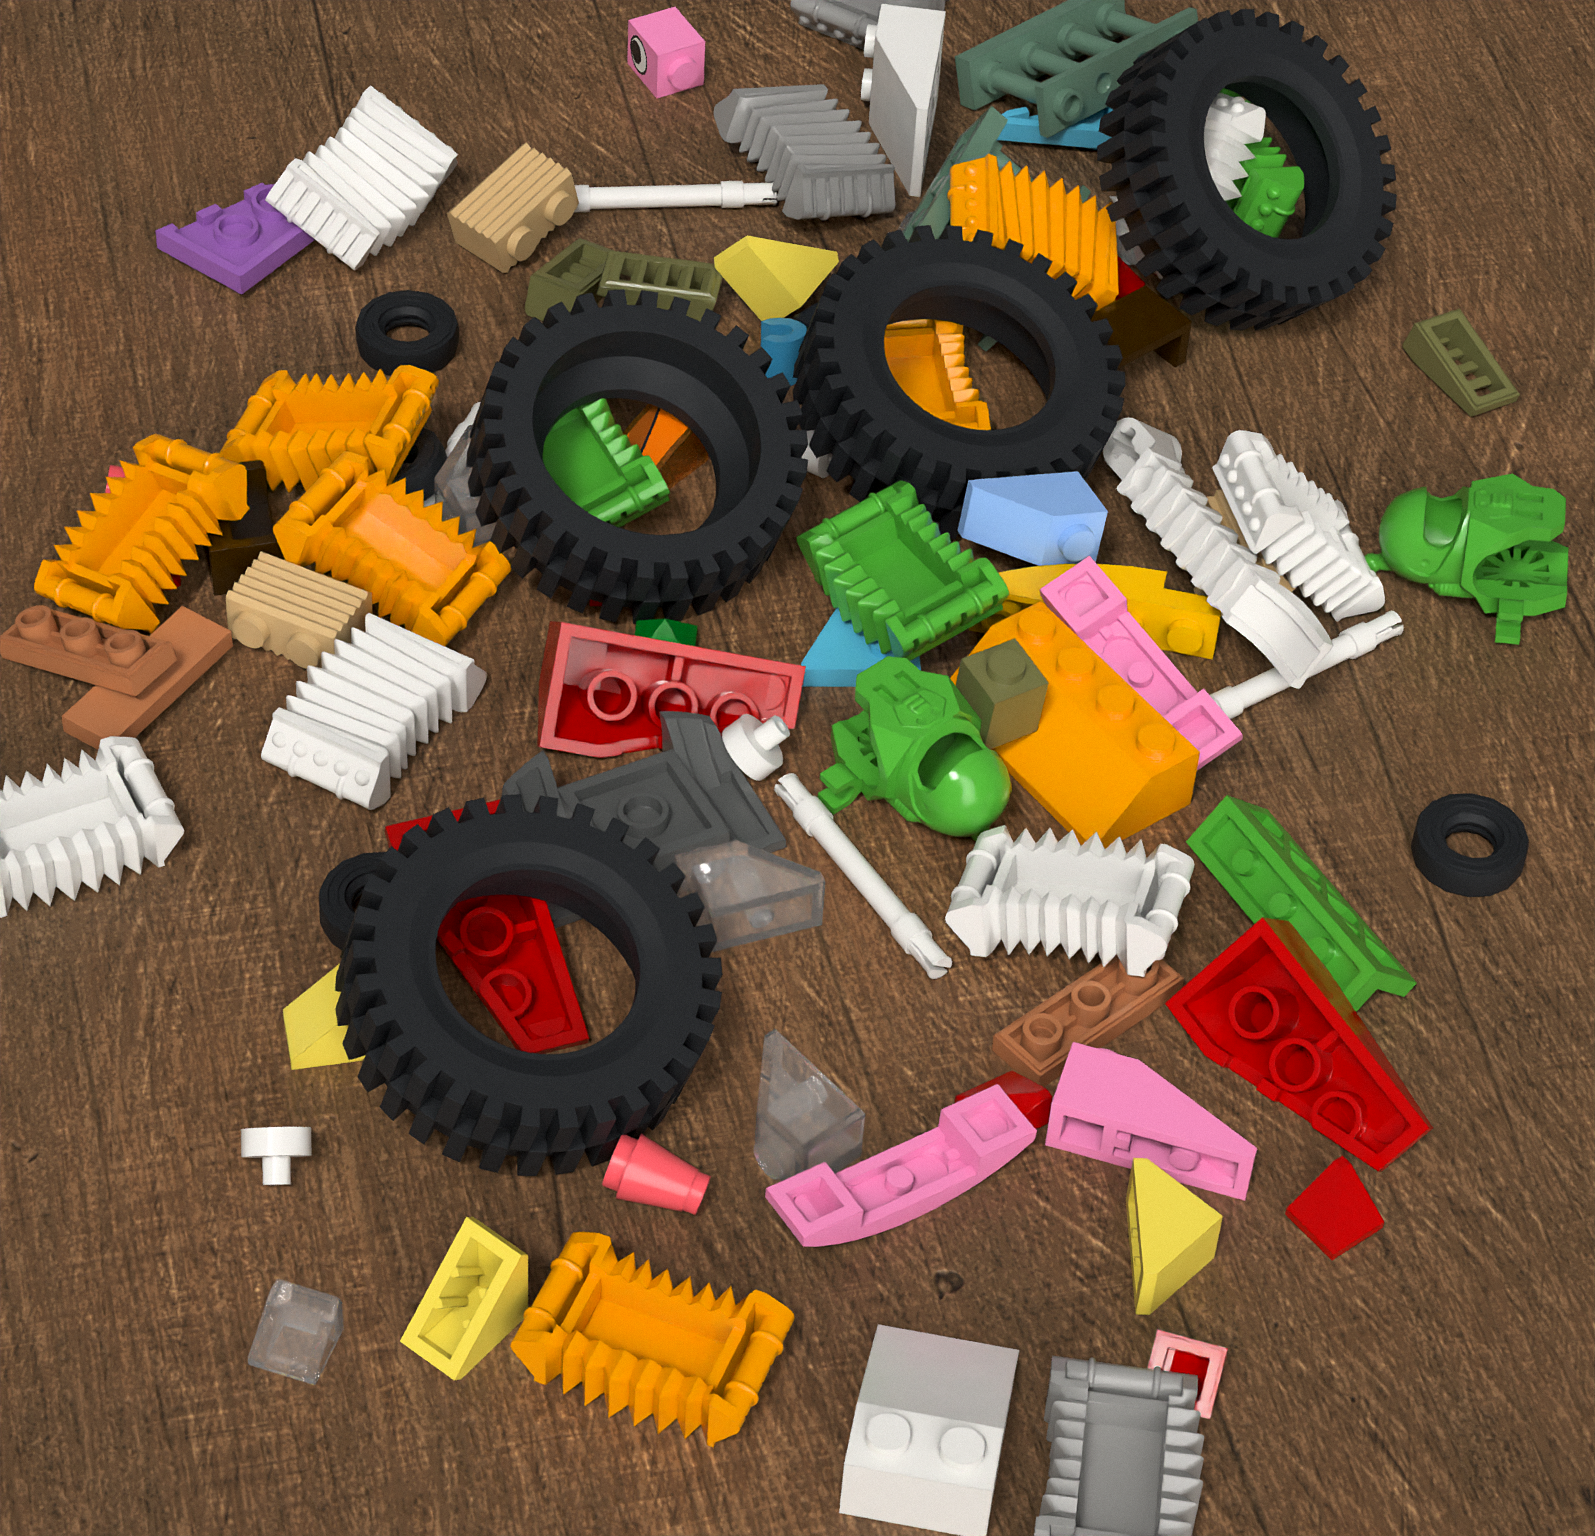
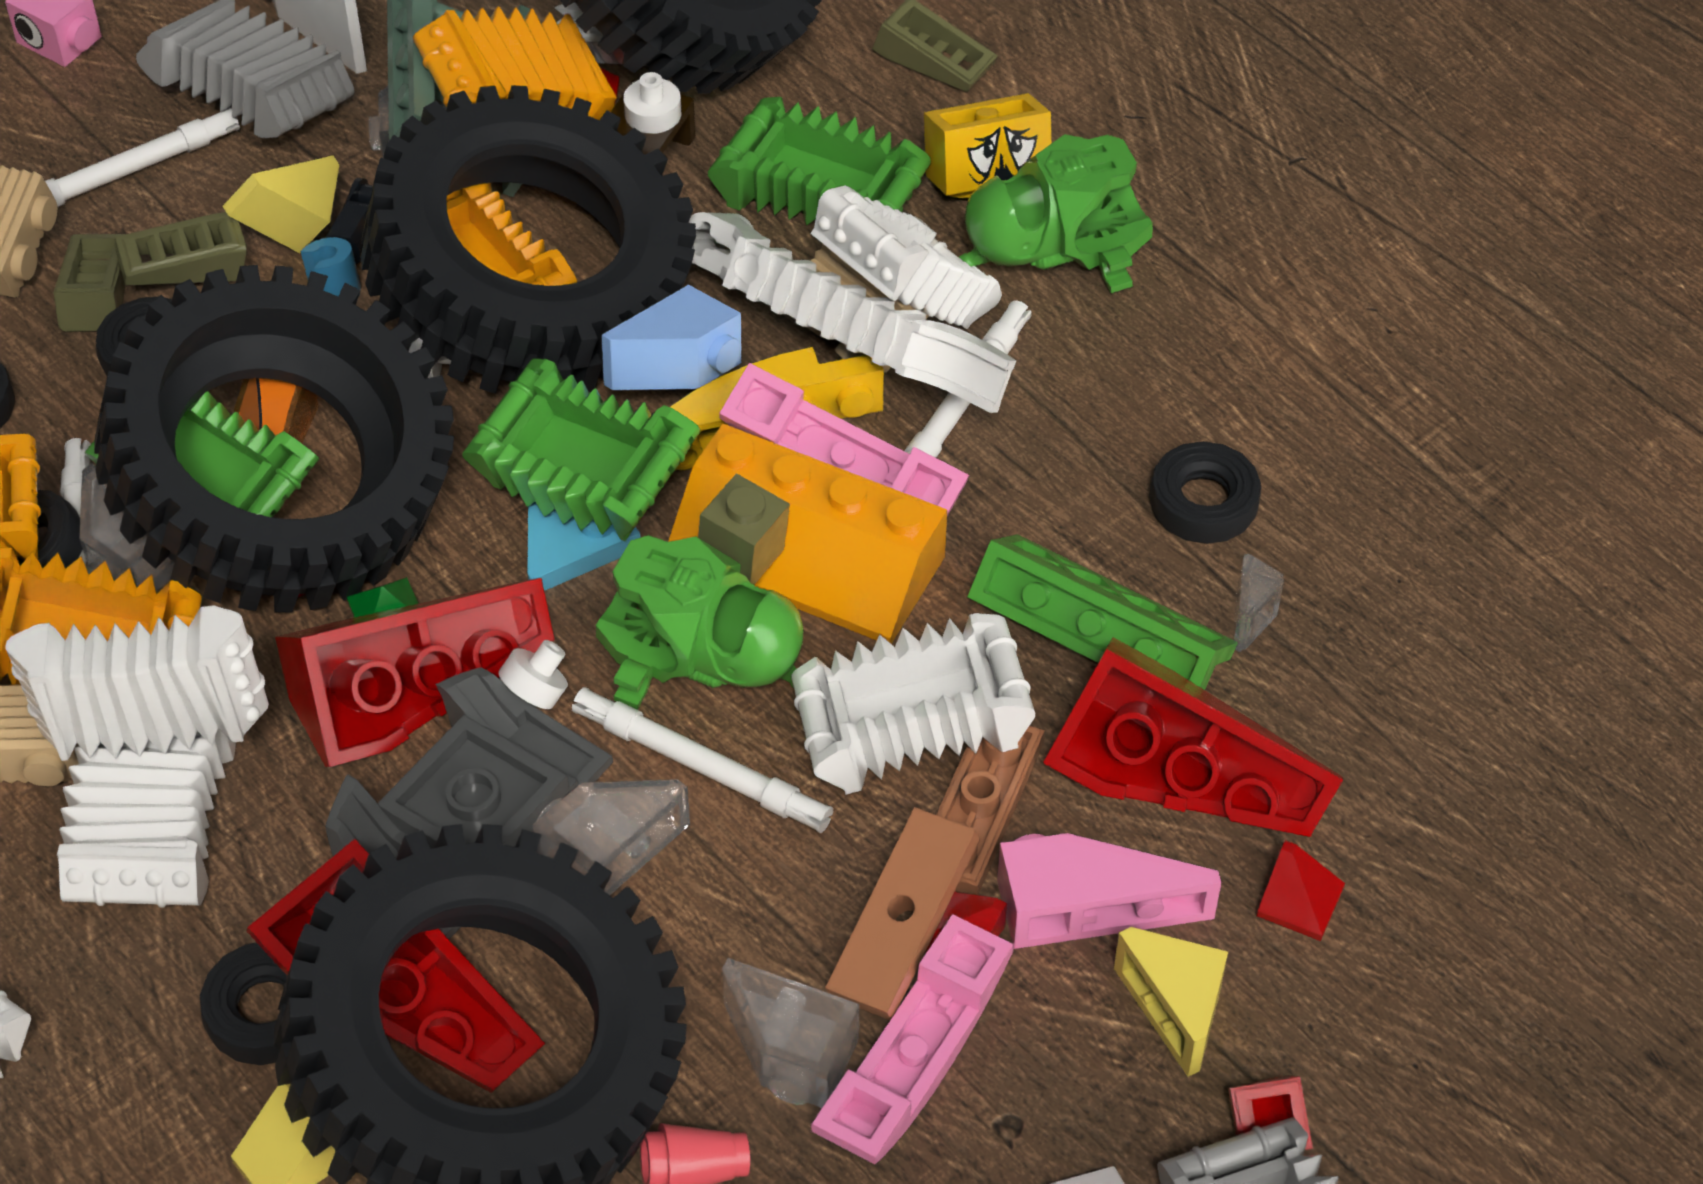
camera: 25 degrees left, 5 degrees up
(408, 601) = (140, 683): none -> white piece
(954, 1063) = (916, 878): none -> nougat tile
(1147, 310) = (652, 104): none -> white tile
(1263, 399) = (799, 158): none -> bright green piece
(1444, 454) = (983, 141): none -> yellow brick
(1450, 952) = (1256, 600): none -> clear slope

